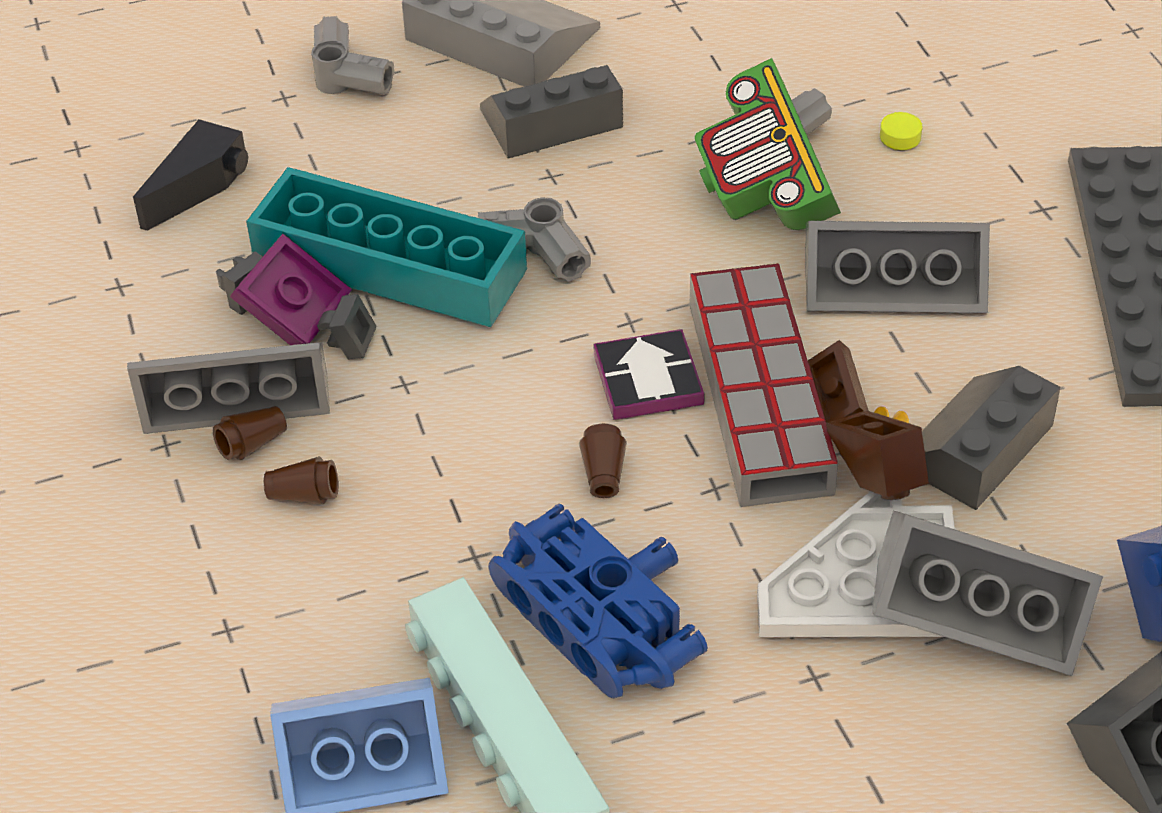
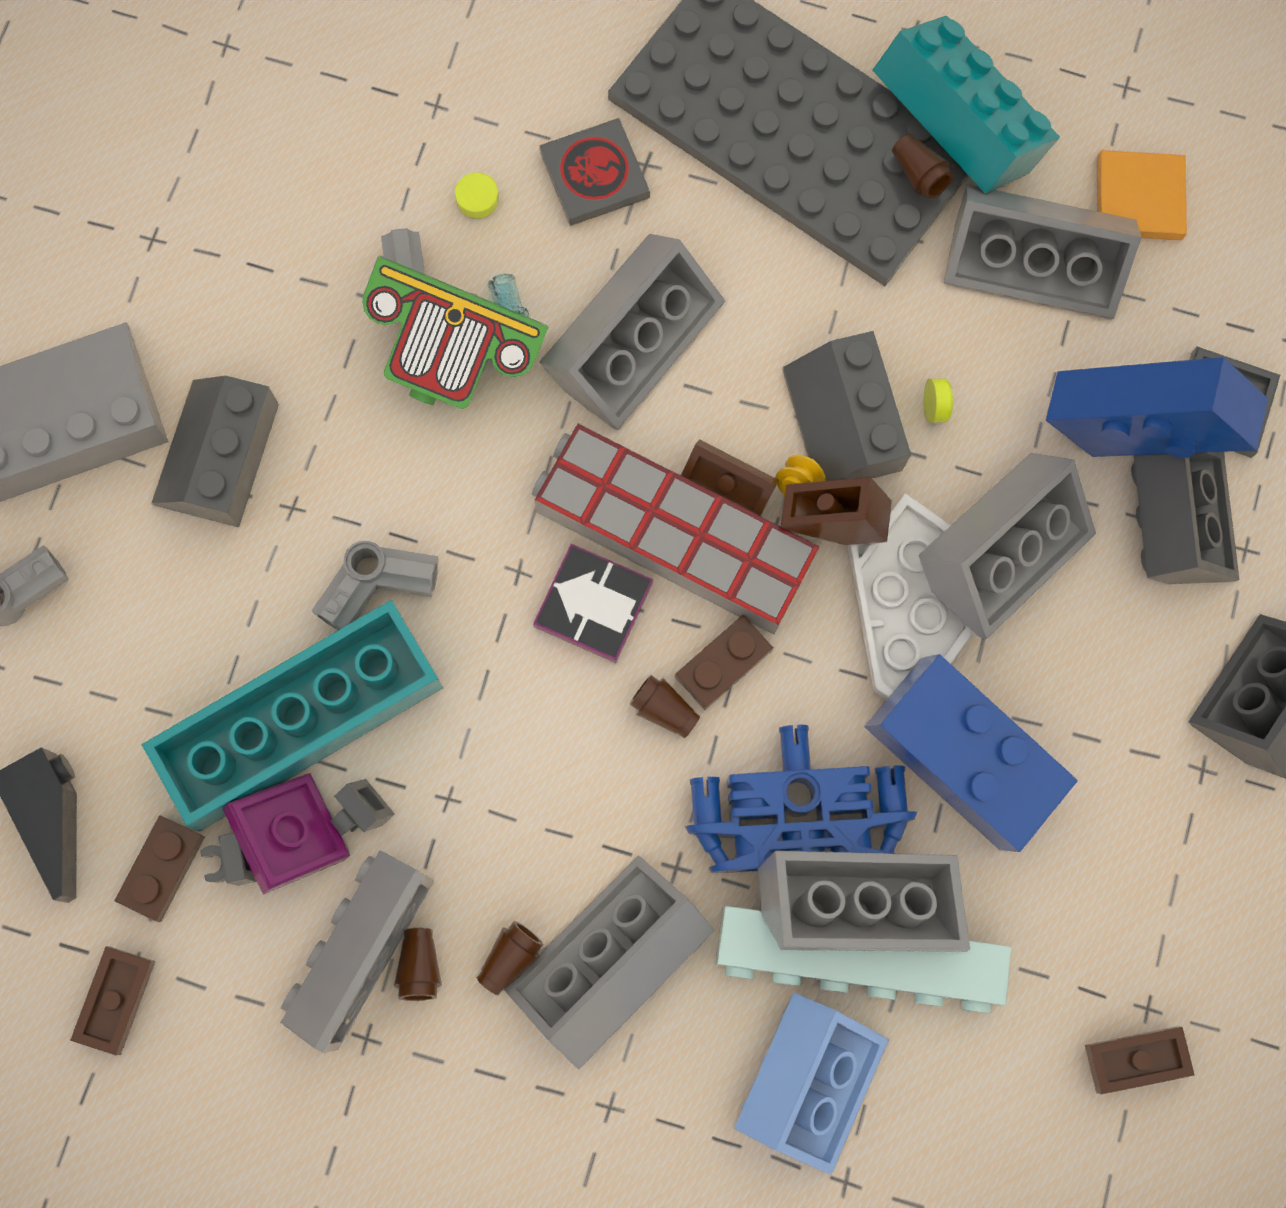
camera: 60 degrees left, 30 degrees up
(83, 281) = (112, 1001): none -> reddish brown plate
(202, 254) = (159, 869): none -> reddish brown plate
(349, 547) = (609, 961): none -> light grey slope
(555, 656) = (863, 901): none -> light grey slope
(681, 482) = (724, 662): none -> reddish brown plate
(761, 676) = (971, 753): none -> blue brick
(844, 183) = (506, 294): none -> clear light blue pin
(998, 180) = (594, 171): none -> tile
(1059, 484) = (937, 400): none -> neon yellow tile

